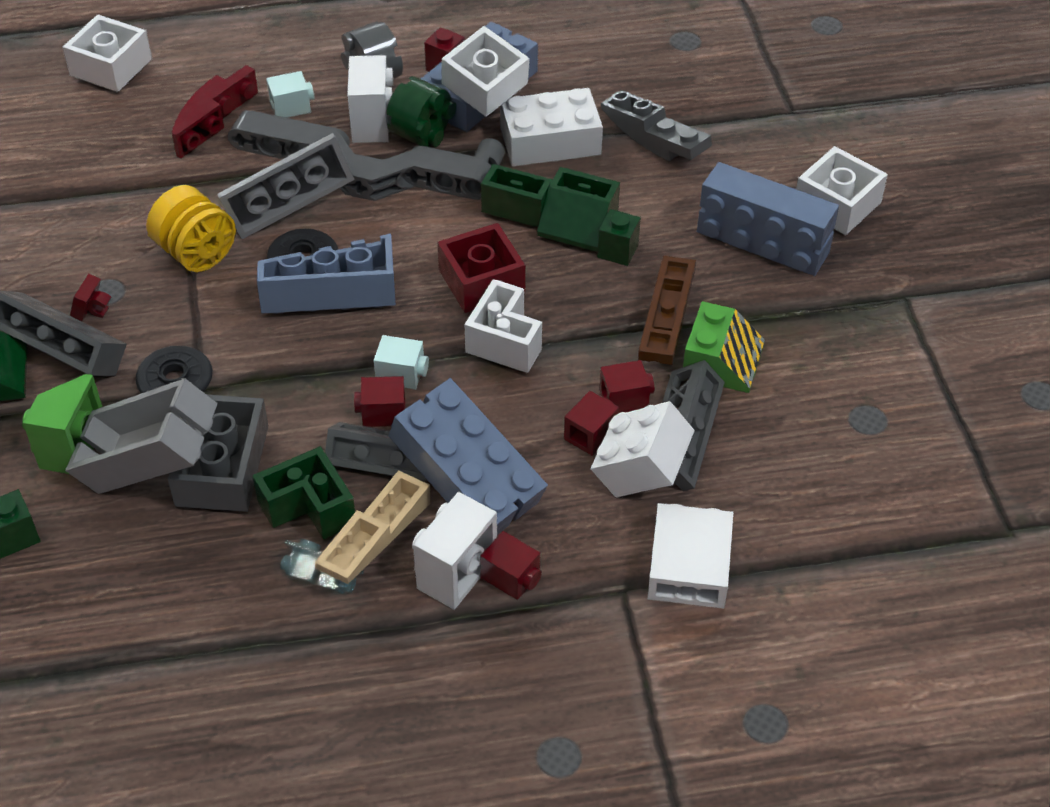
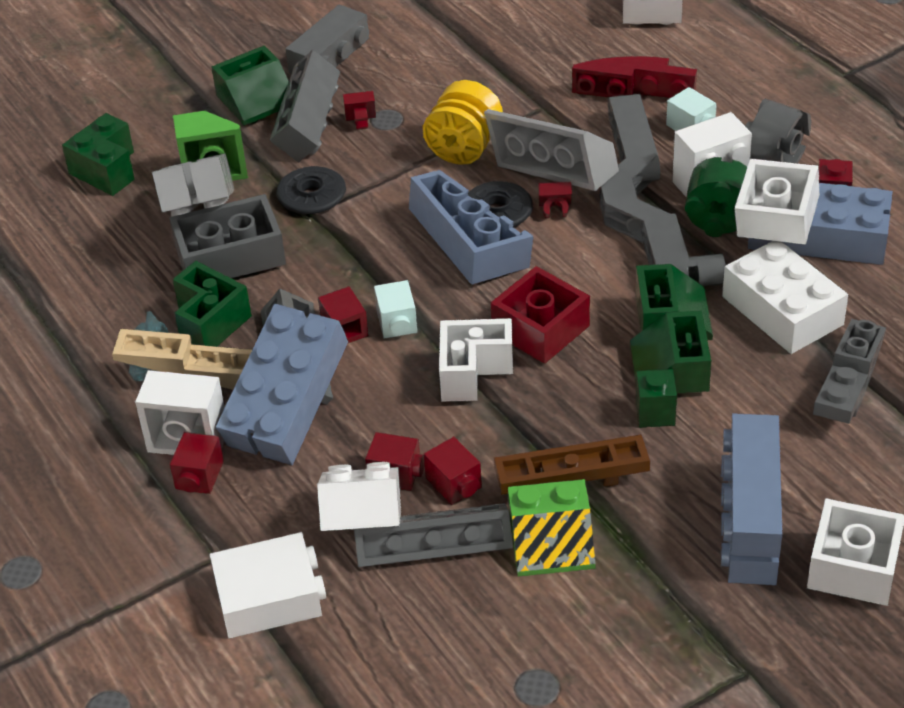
camera: 70 degrees right, 5 degrees down
(329, 212) = (555, 194): none -> dark red tile

